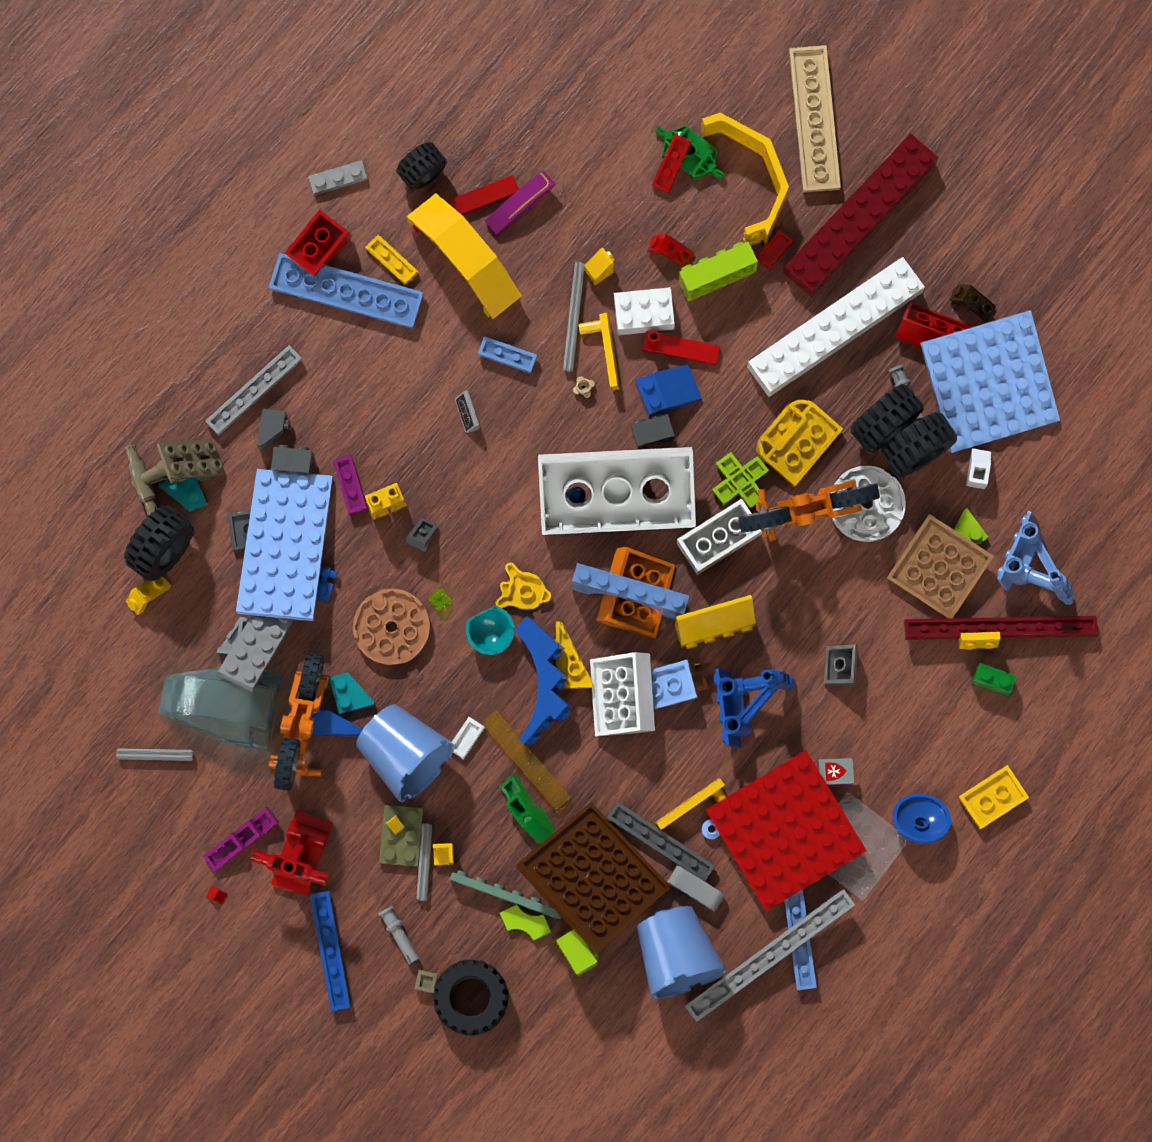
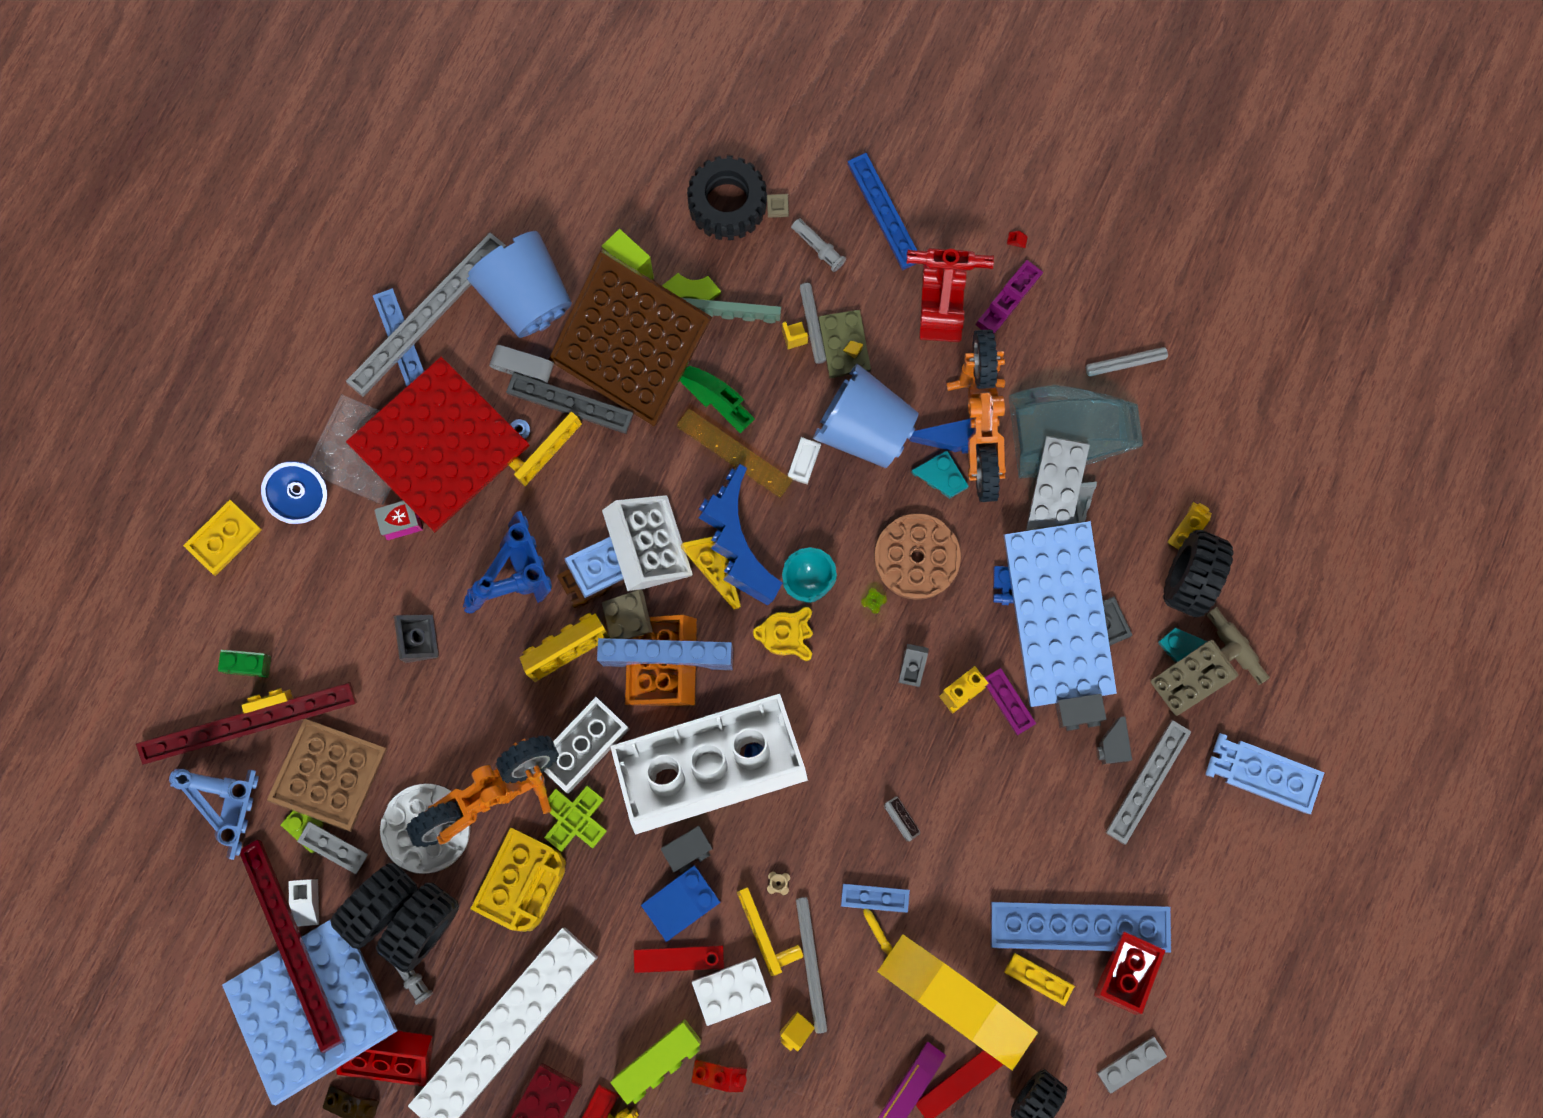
camera: 160 degrees right, 0 degrees up
(154, 372) = (1265, 774): none -> light blue hinge
(512, 327) = (885, 946): none -> yellow piece
(656, 636) = (627, 616): none -> dark tan plate
(947, 506) = (332, 847): none -> light grey plate
(994, 432) = (291, 947): none -> dark red plate

